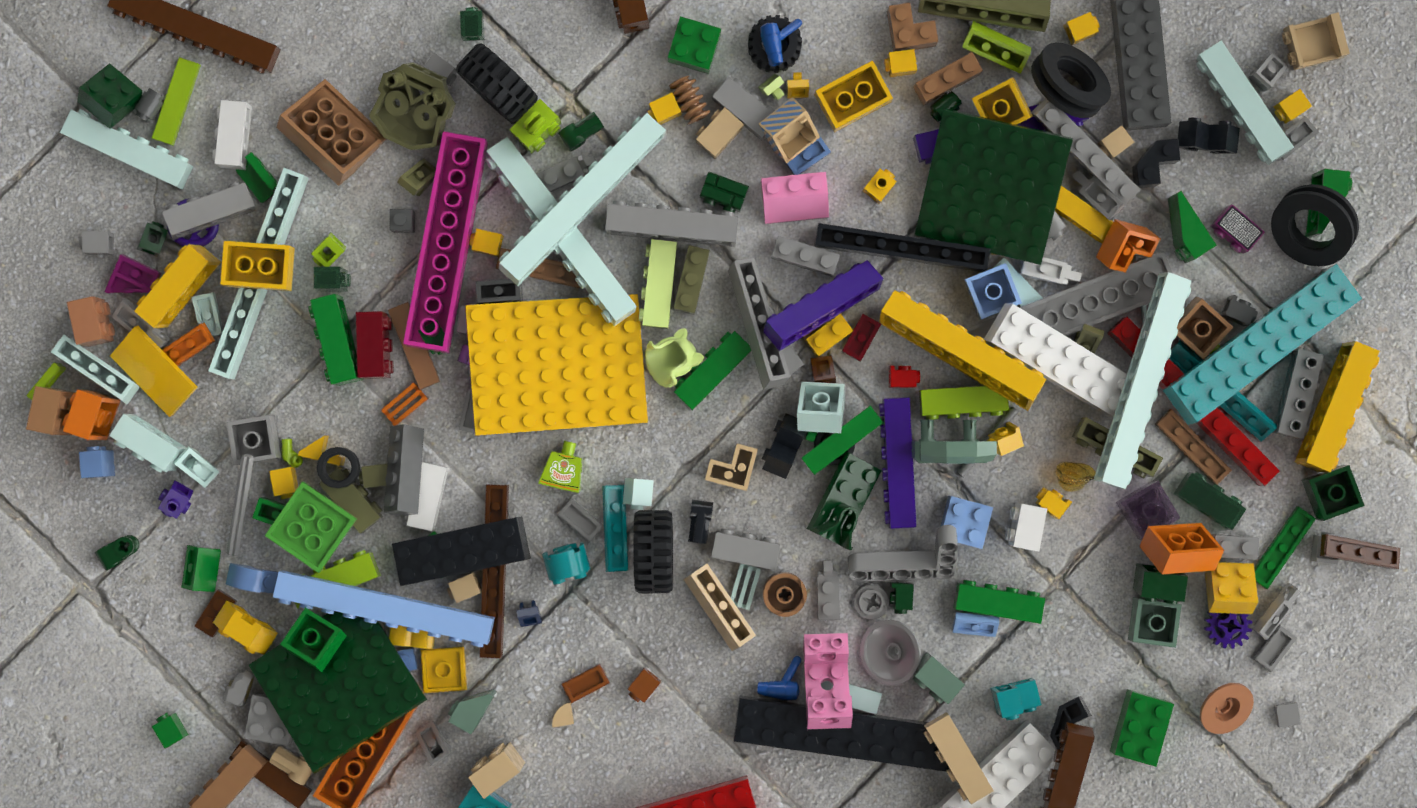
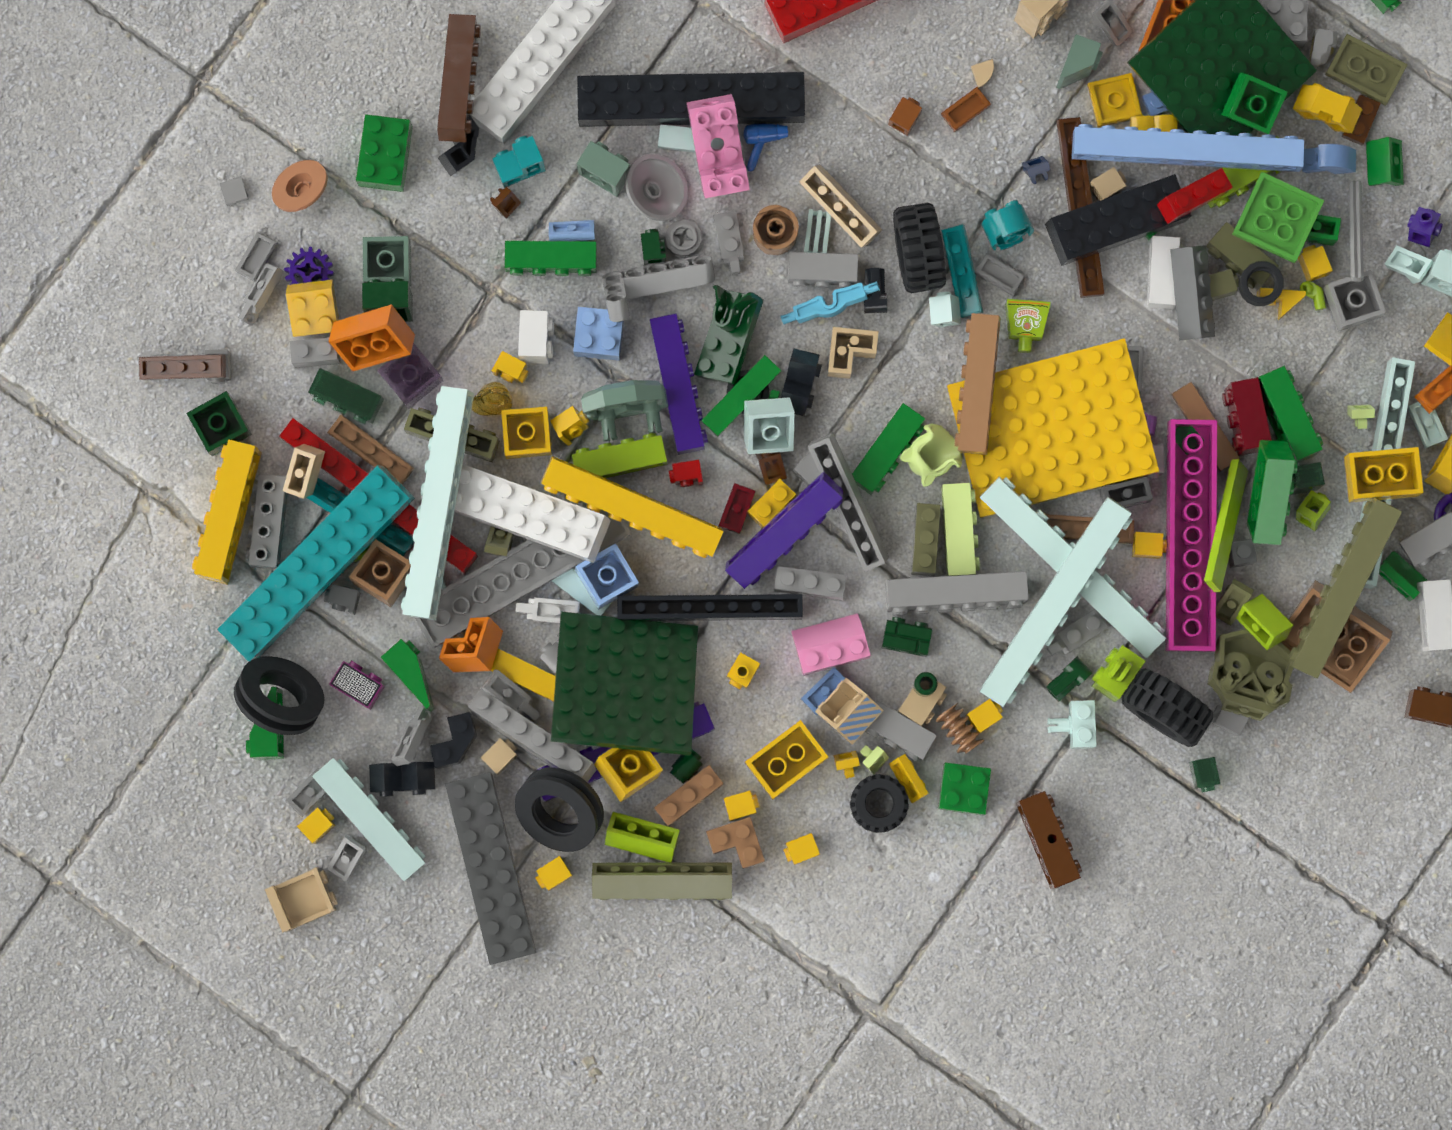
camera: 175 degrees right, 5 degrees down
(201, 660) = (1366, 69): none -> olive plate
(268, 333) = (1360, 414): none -> yellowish green tile
(312, 167) = (1345, 587): none -> olive brick
(365, 267) = (1271, 492): none -> green brick
(385, 559) = (1194, 195): none -> red brick
(390, 416) = (1216, 349): orange tile -> none
(392, 152) = (1264, 621): none -> lime brick
(412, 245) = (1226, 525): none -> lime tile
(579, 87) = (1079, 724): none -> light aqua brick
(618, 415) = (979, 383): none -> medium nougat brick
(719, 135) = (928, 677): none -> dark green brick
(746, 70) = (907, 776): none -> yellow plate
(755, 514) = (841, 300): none -> medium azure piece
(772, 39) = (883, 804): blue piece -> none
(852, 14) = (801, 849): none -> yellow brick
(958, 757) = (571, 88): tan brick -> none
(1033, 662) = (505, 202): none -> reddish brown tile
(1047, 438) = (526, 432): none -> yellow brick
(1195, 170) = (411, 737): none -> light grey hinge
(1264, 431) = (303, 471): none -> tan brick
(1282, 546) = (262, 361): green tile -> none

